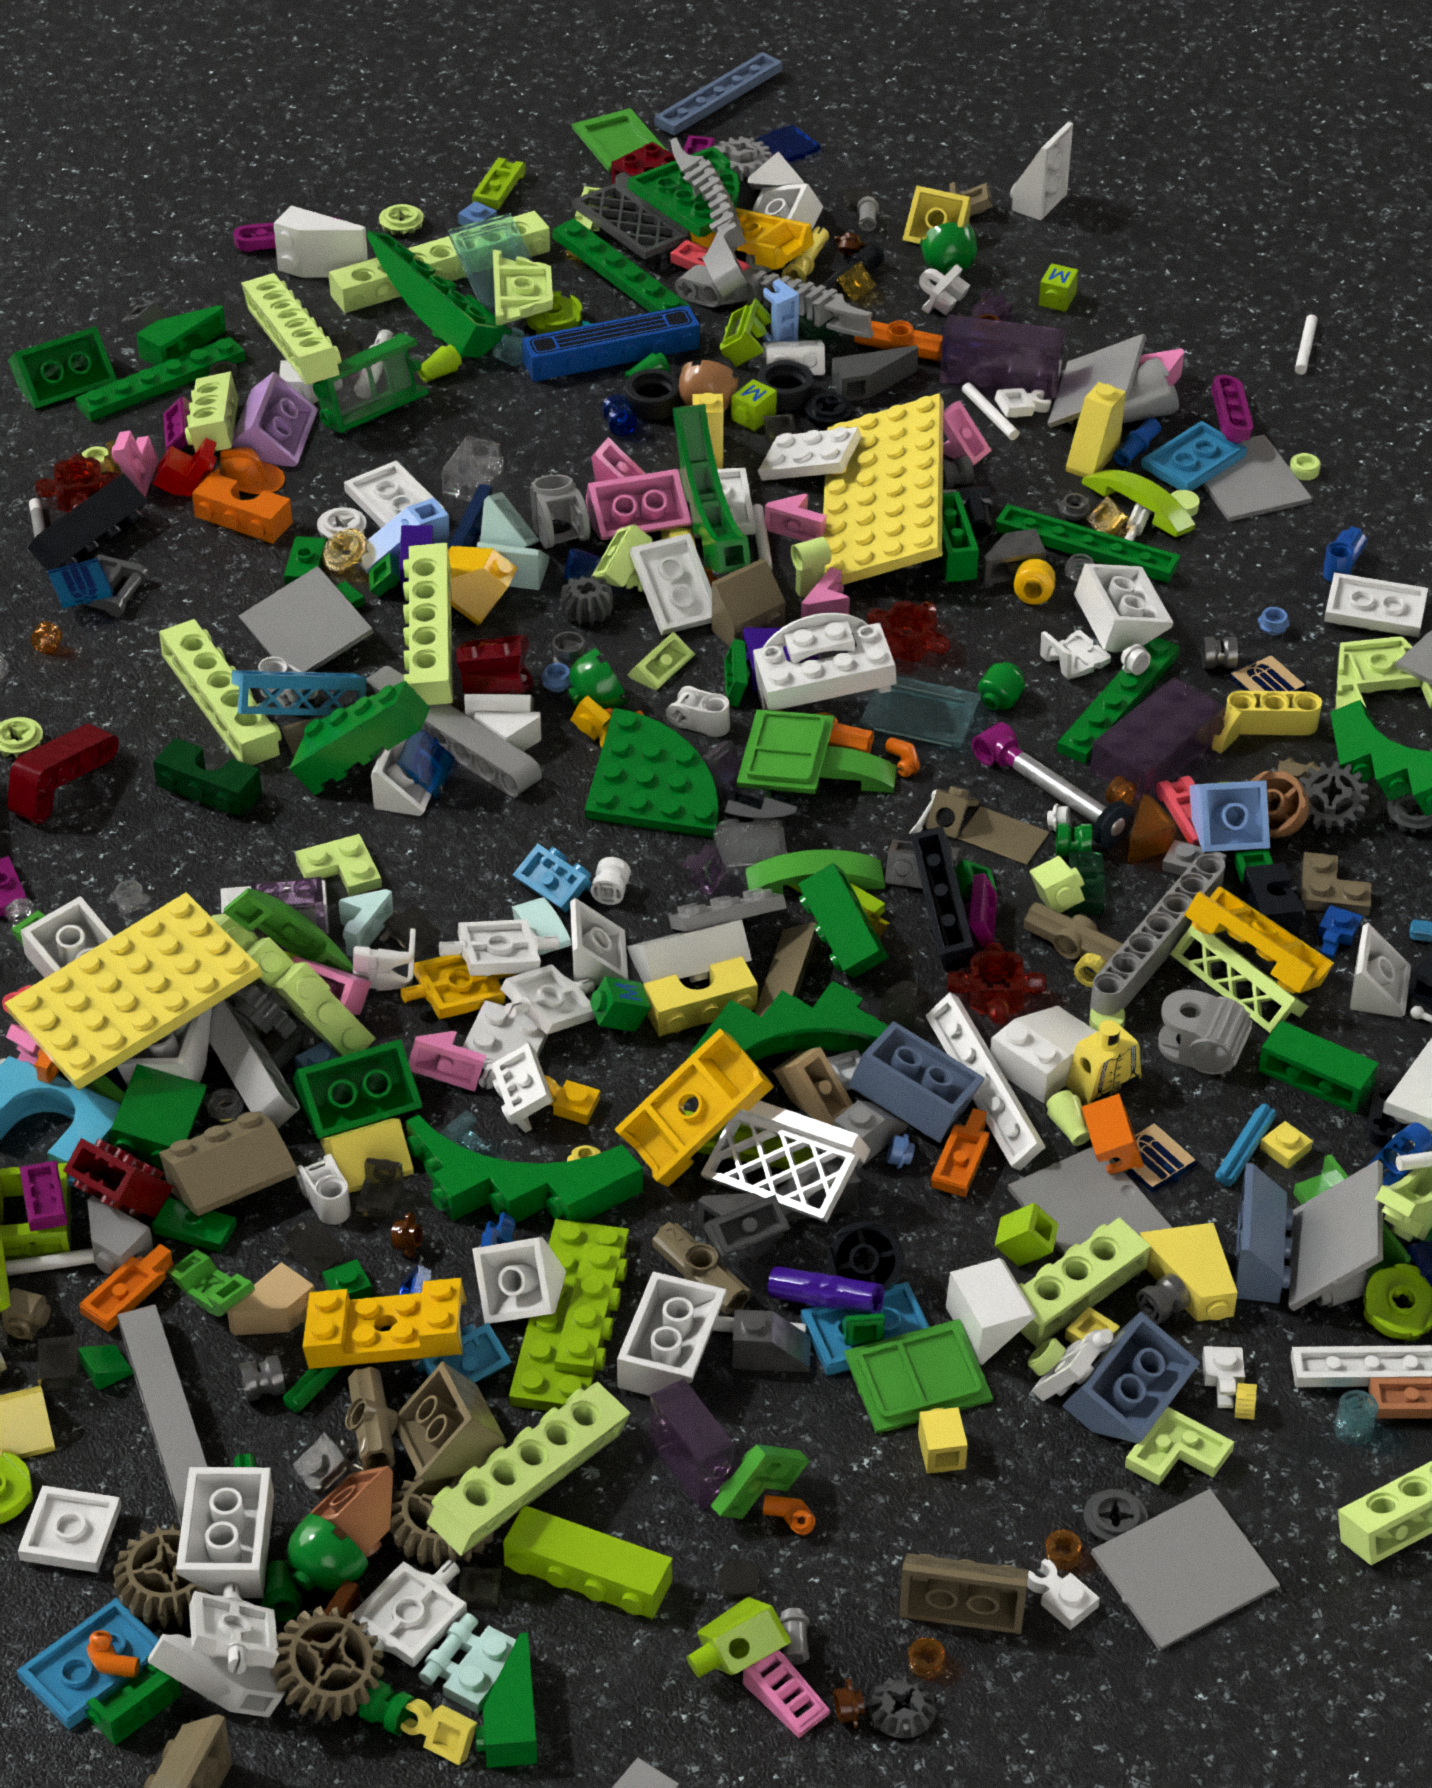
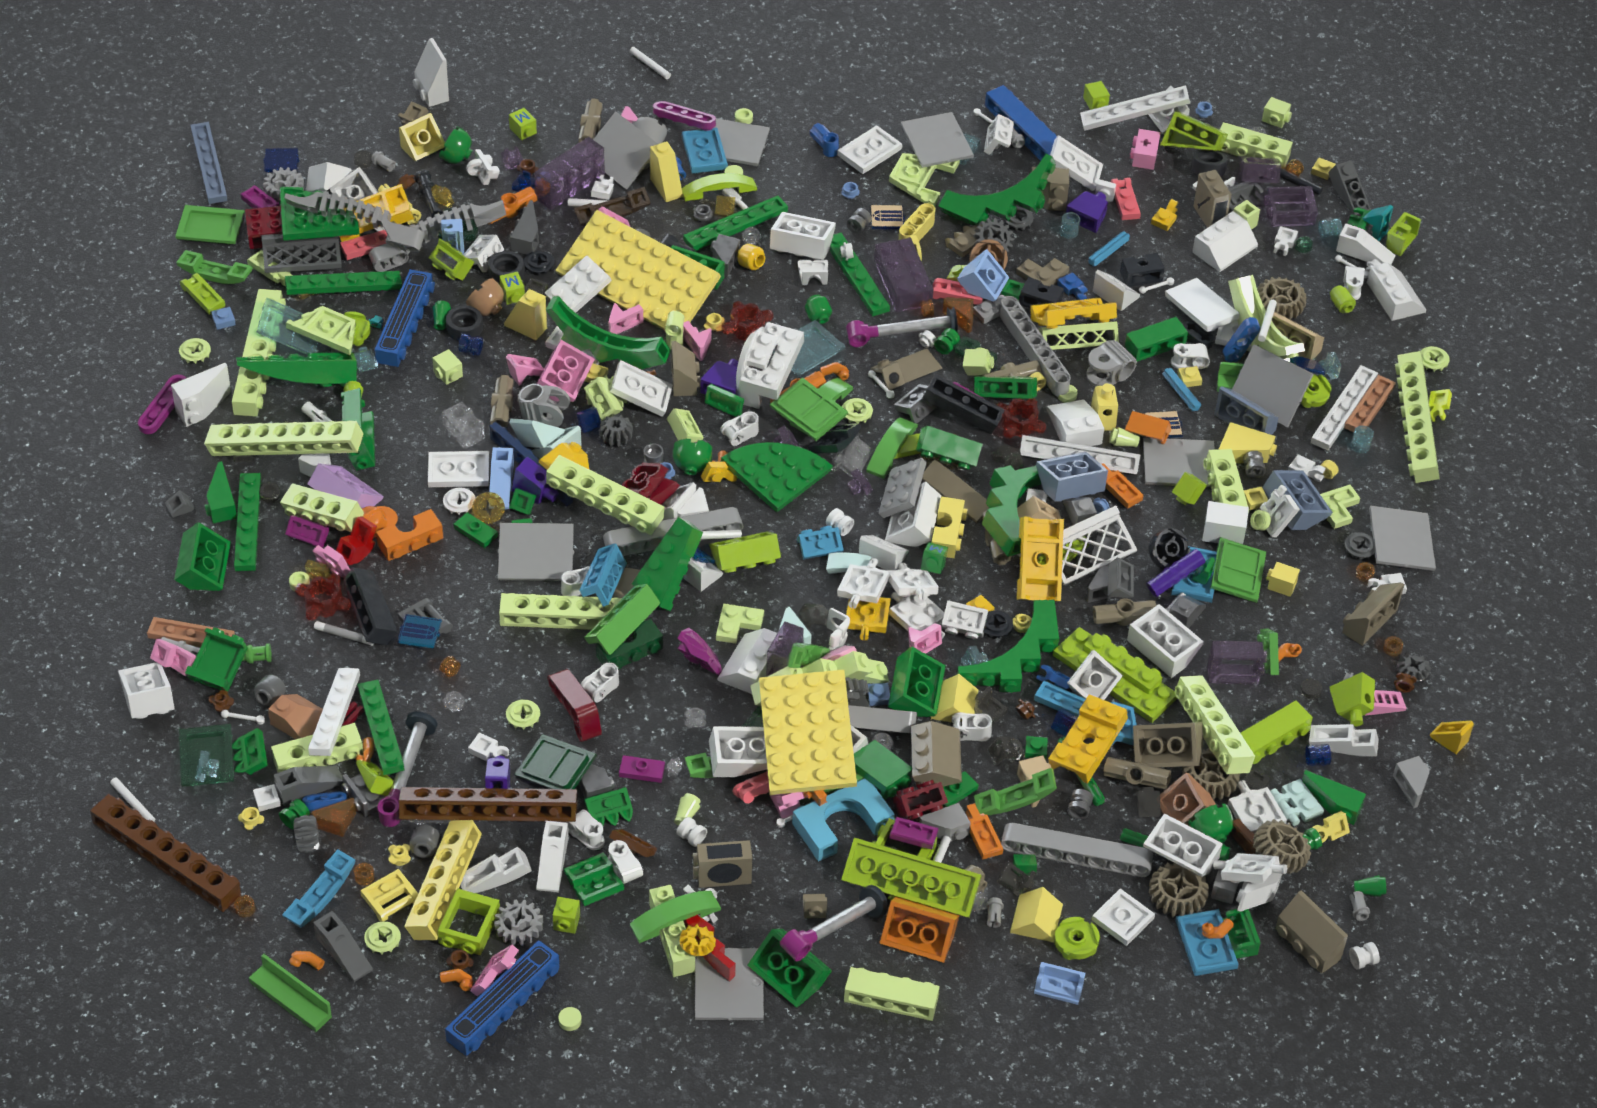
camera: 60 degrees left, 5 degrees up
(124, 780) = (599, 682): none -> white piece
(228, 741) = (623, 618): none -> bright green panel
(235, 837) = (698, 651): none -> magenta slope
(459, 1263) = (1058, 698): none -> dark azure plate
(471, 811) = (746, 551): none -> lime slope
(474, 766) = (721, 534): none -> white piece
(518, 490) = (502, 401): none -> dark tan piece
(545, 169) = (212, 271): none -> bright green slope
(560, 413) = (447, 367): none -> yellowish green brick
(560, 1122) = (1002, 619): none -> black gear
(586, 1641) = (1318, 754): none -> clear blue wheel
(655, 1672) = (1345, 739): none -> white slope
(843, 801) = (859, 405): none -> yellowish green gear
(878, 599) = (714, 322): none -> light yellow plate
(995, 427) = (622, 206): none -> dark brown slope
(1036, 938) = (1006, 387): none -> green slope
(1156, 333) = (590, 120): none -> dark tan piece
(1326, 1125) = (1190, 356): none -> white piece

